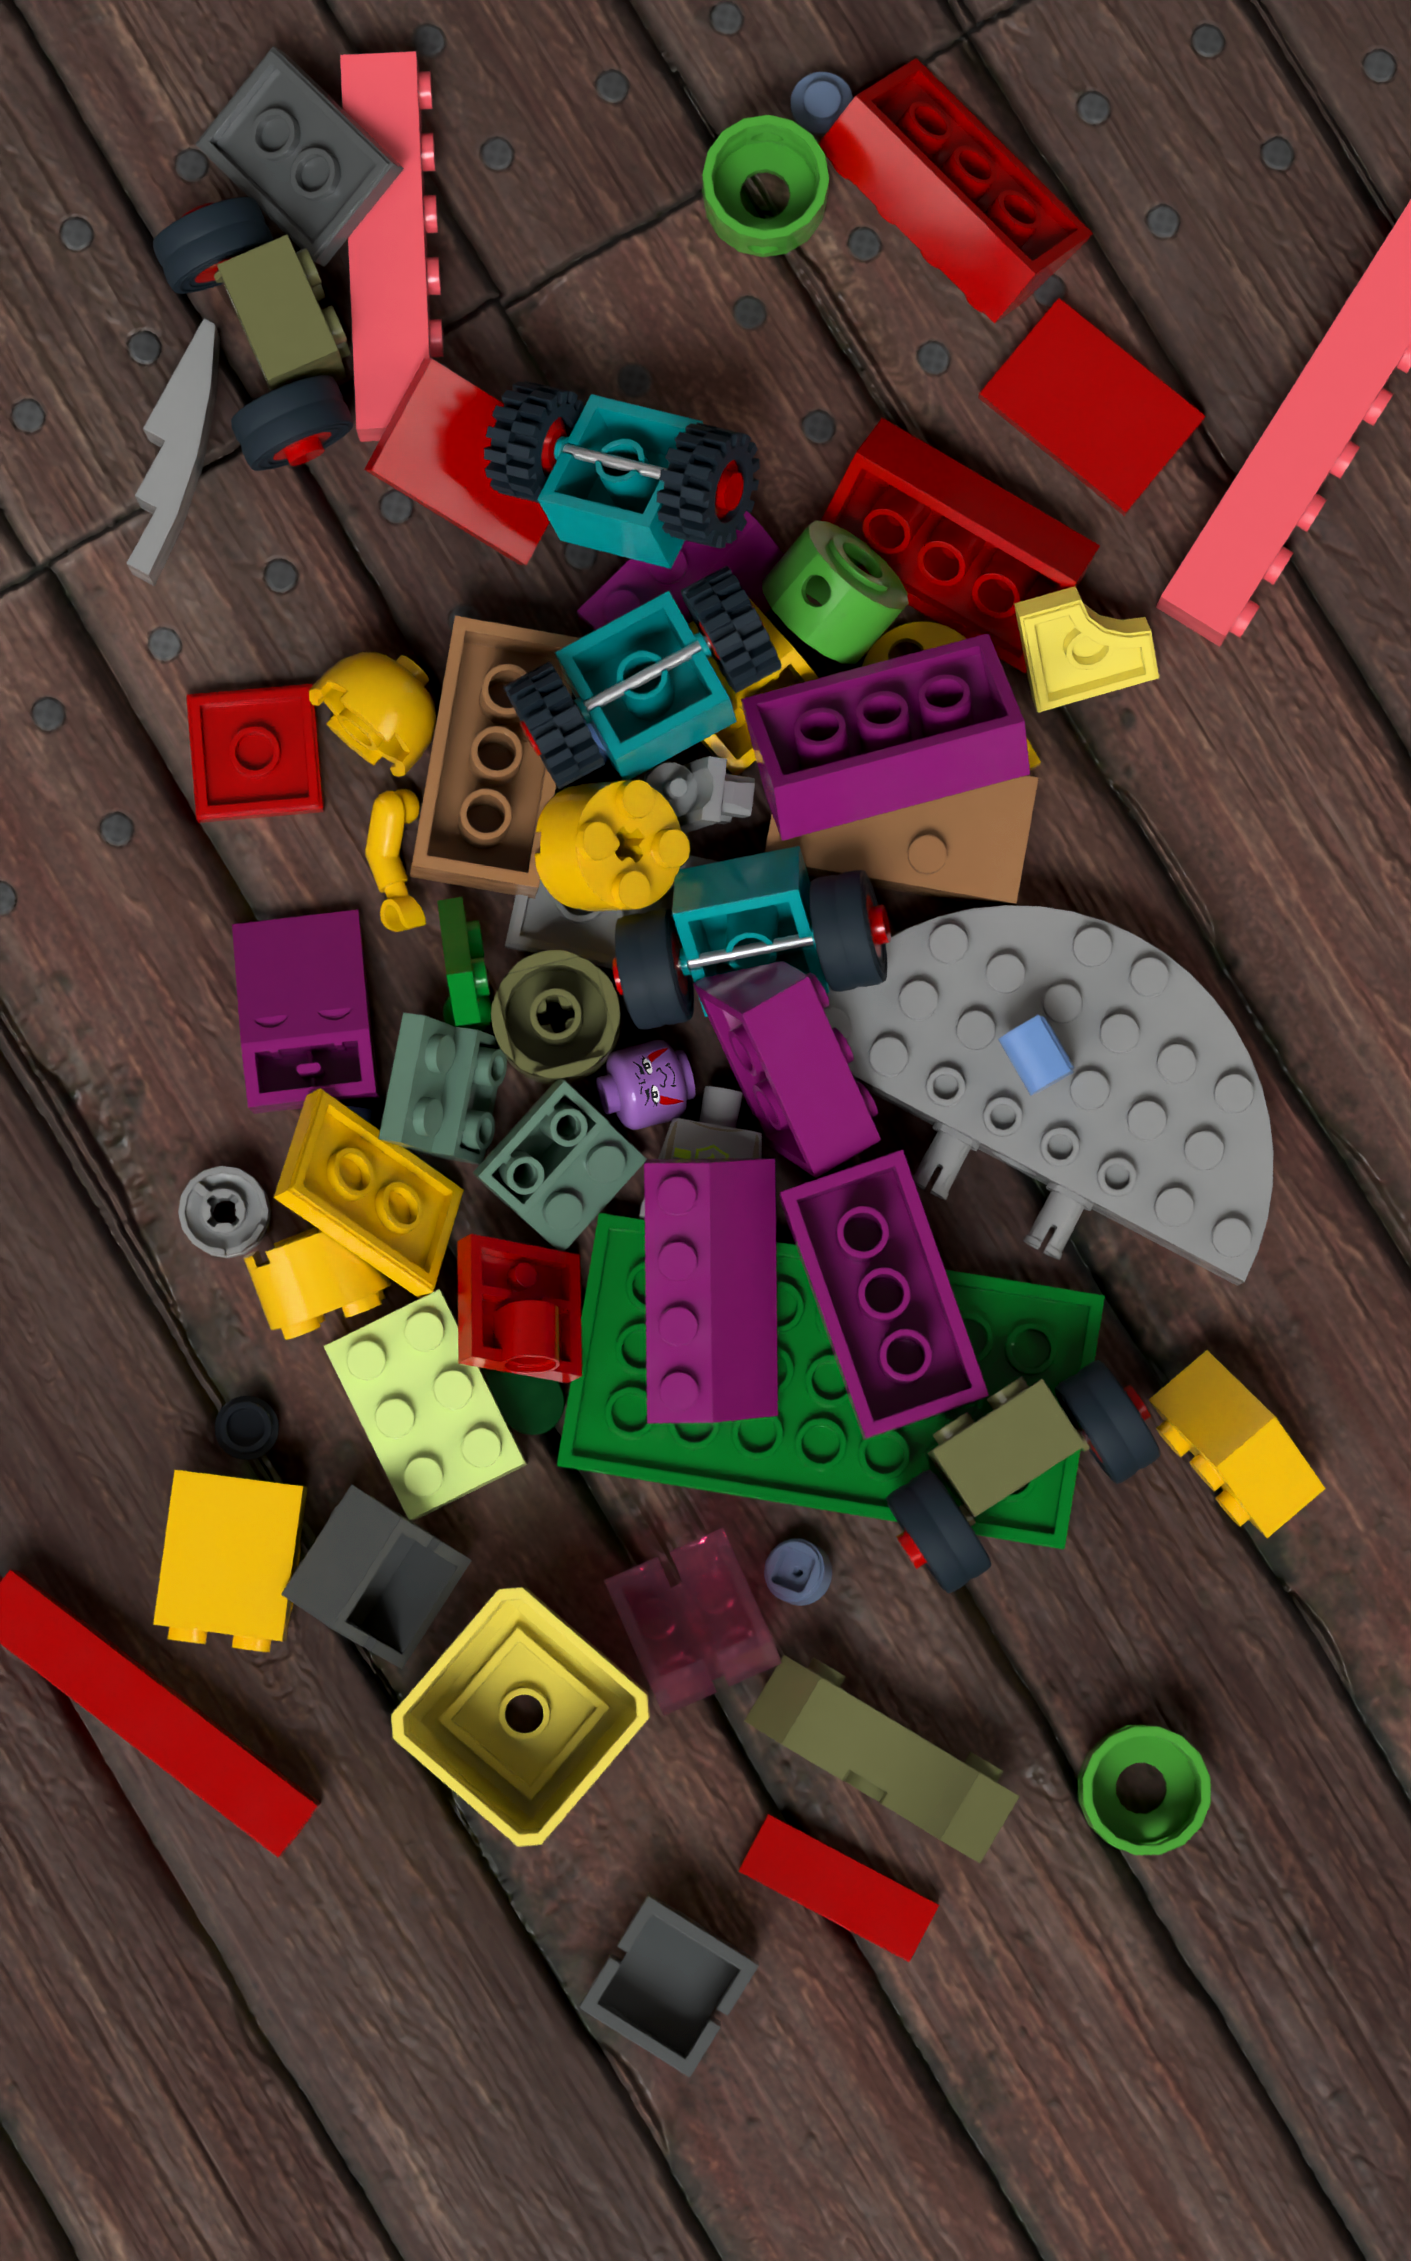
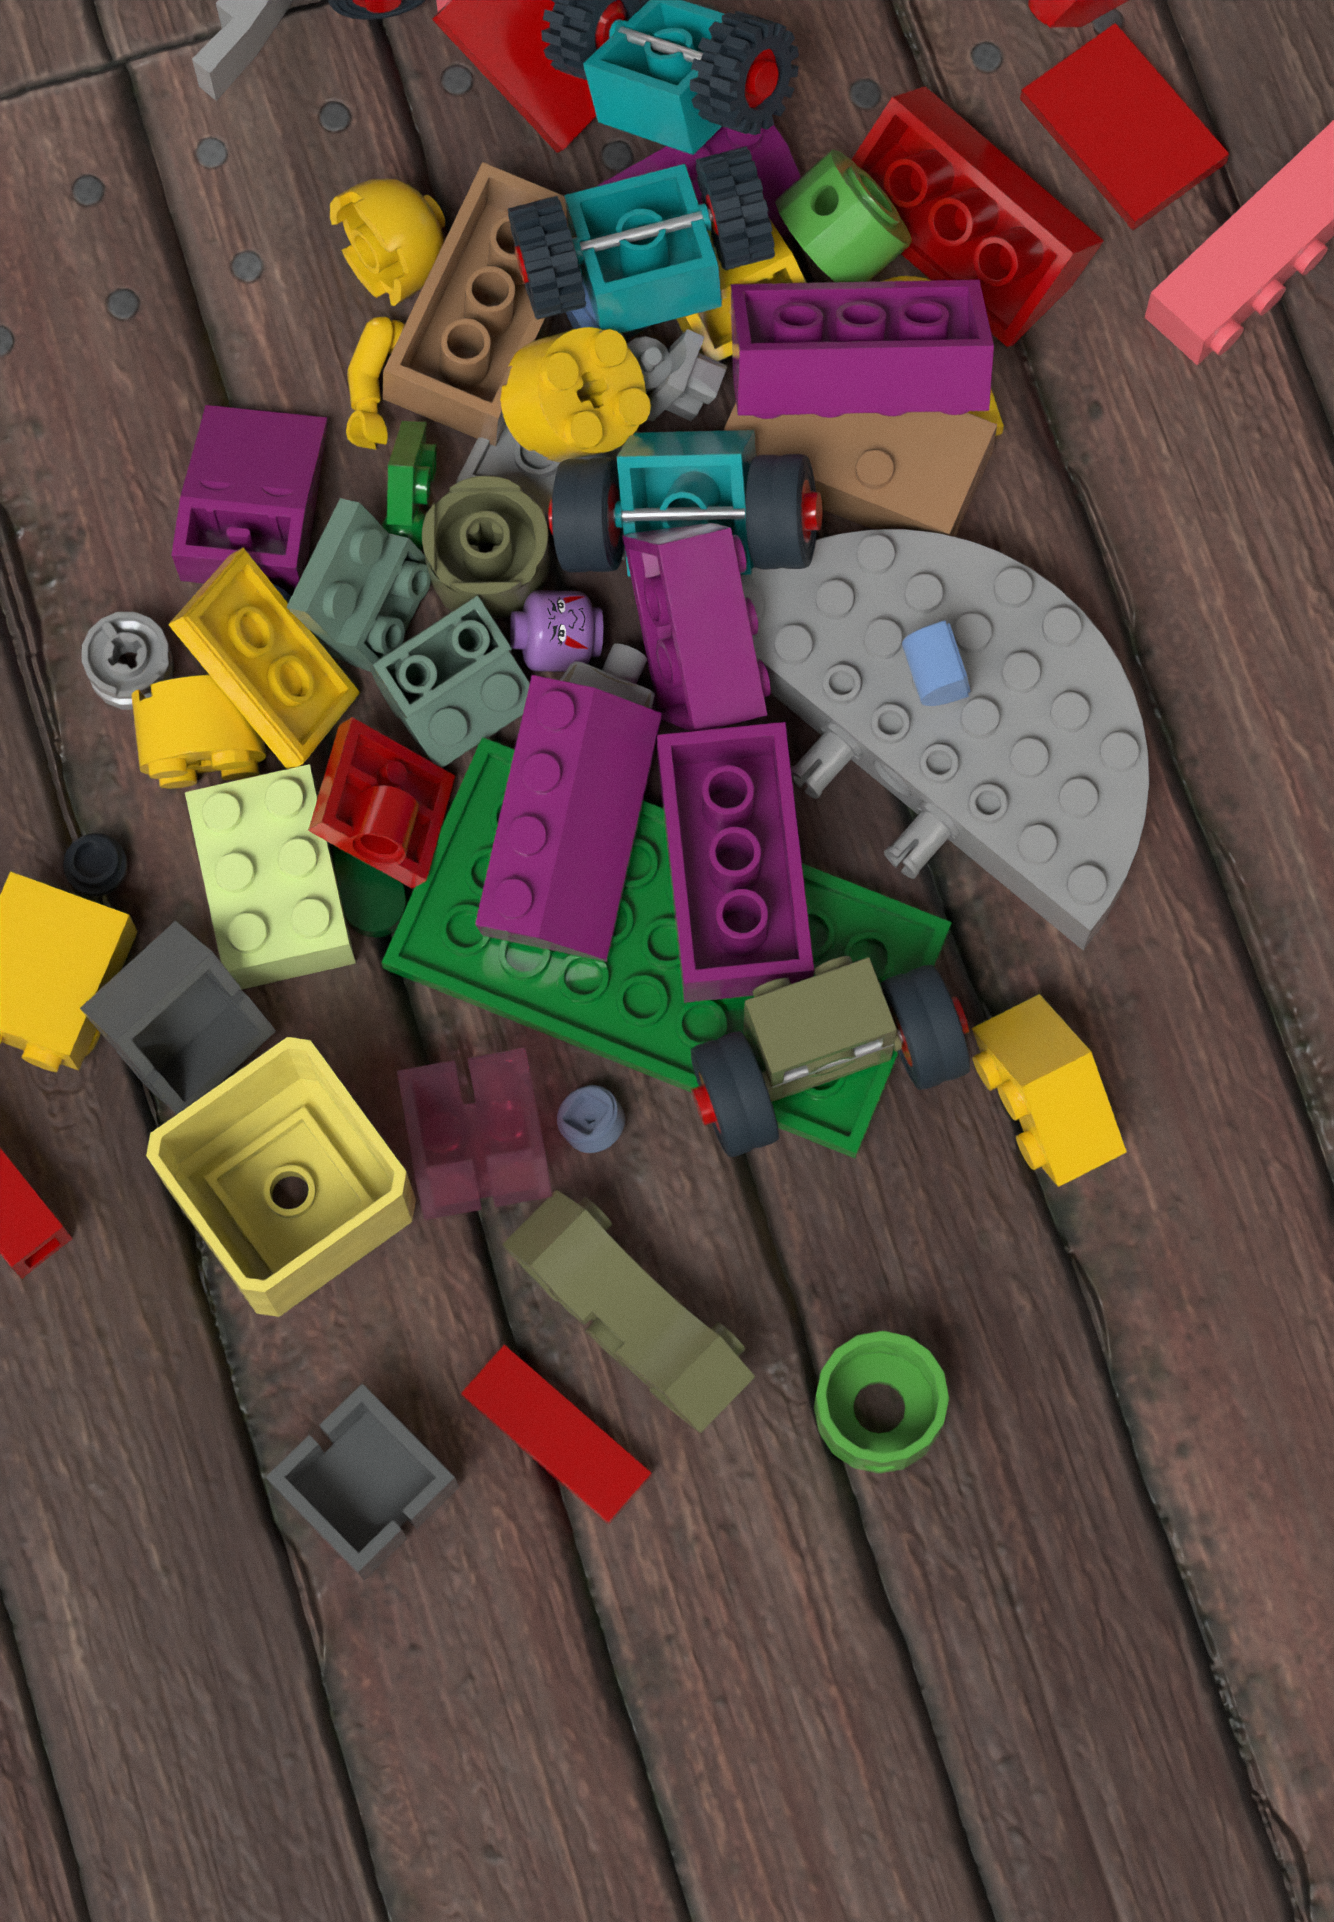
camera: 15 degrees right, 10 degrees down
(254, 753) = (268, 262): red tile -> none
(1079, 653) = (1062, 331): light yellow tile -> none

